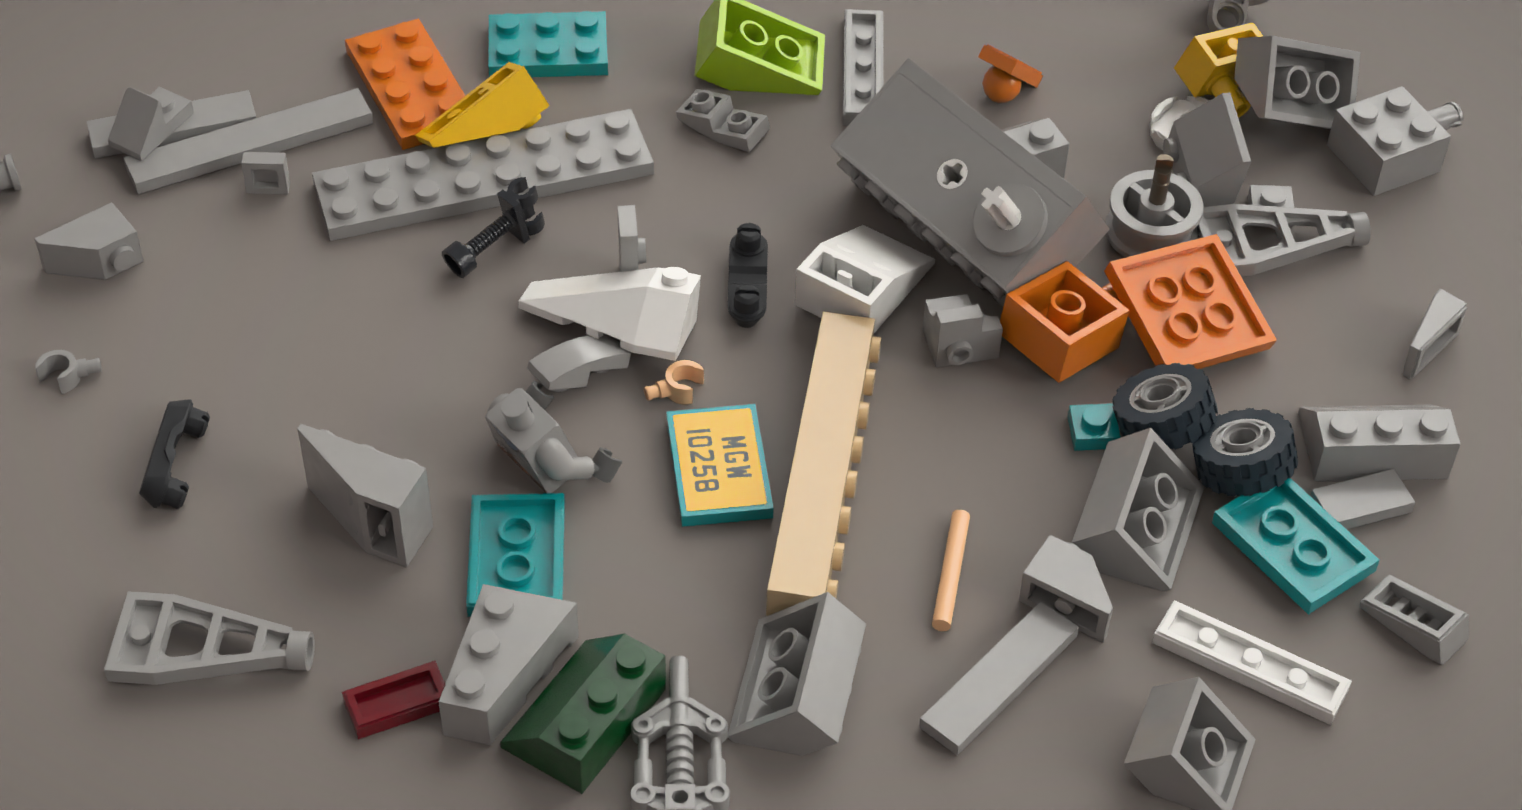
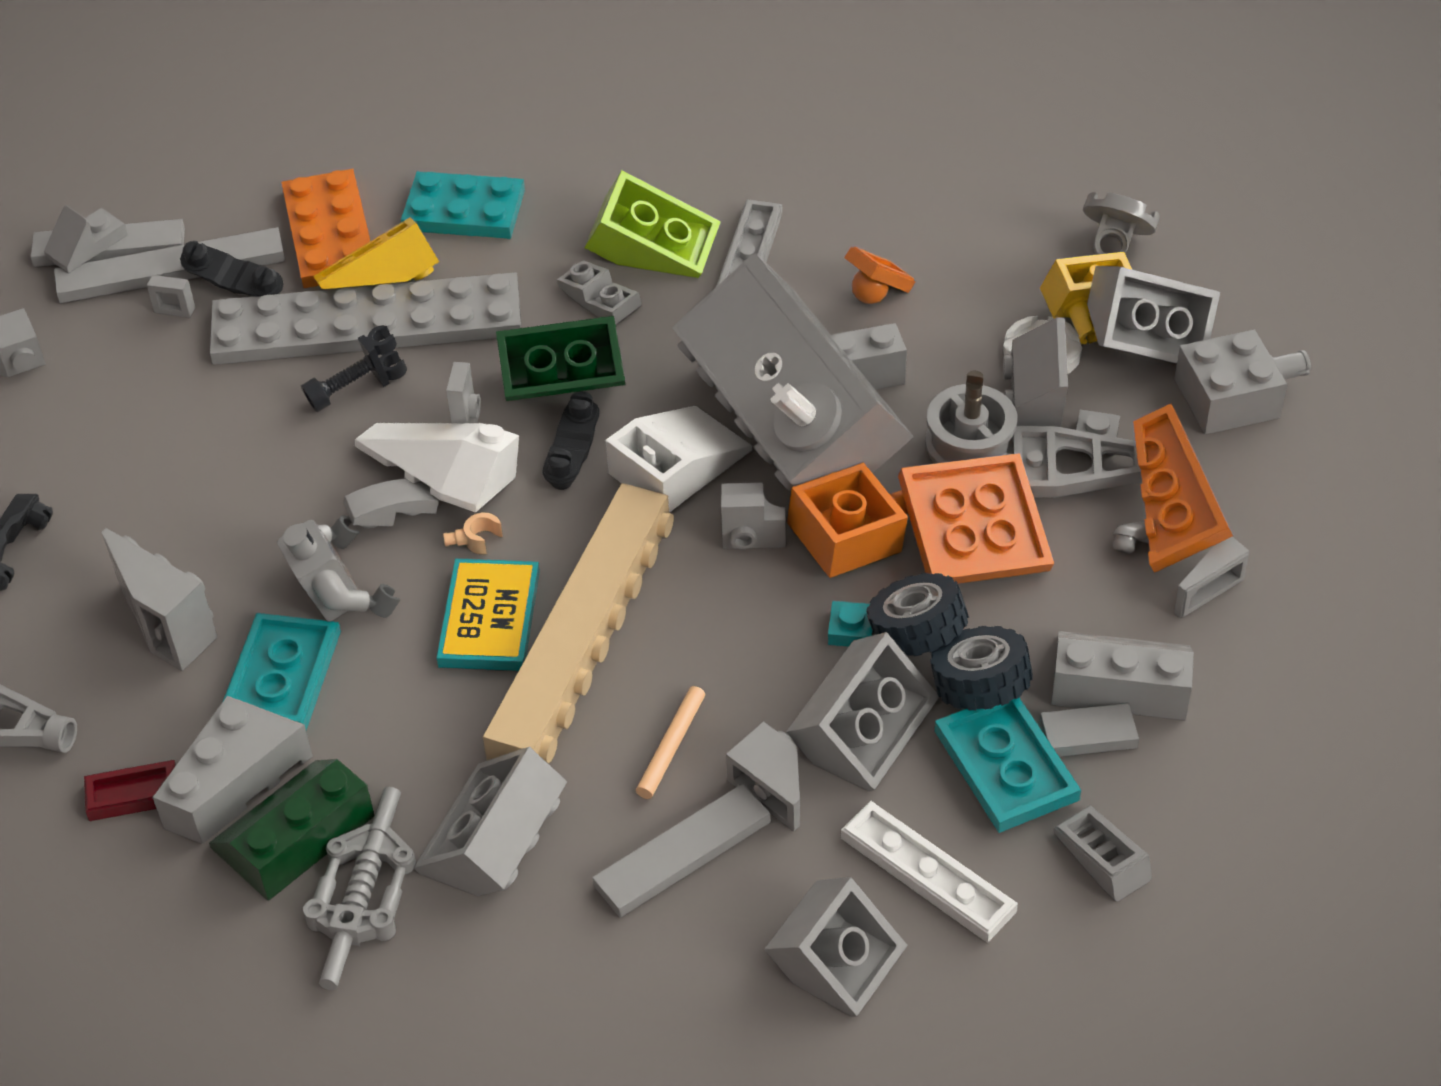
camera: 15 degrees right, 0 degrees up
(324, 141) = (229, 272): none -> black piece
(714, 192) = (560, 358): none -> dark green slope
(1350, 298) = (1127, 535): none -> light grey arm
(1380, 255) = (1176, 493): none -> orange wing

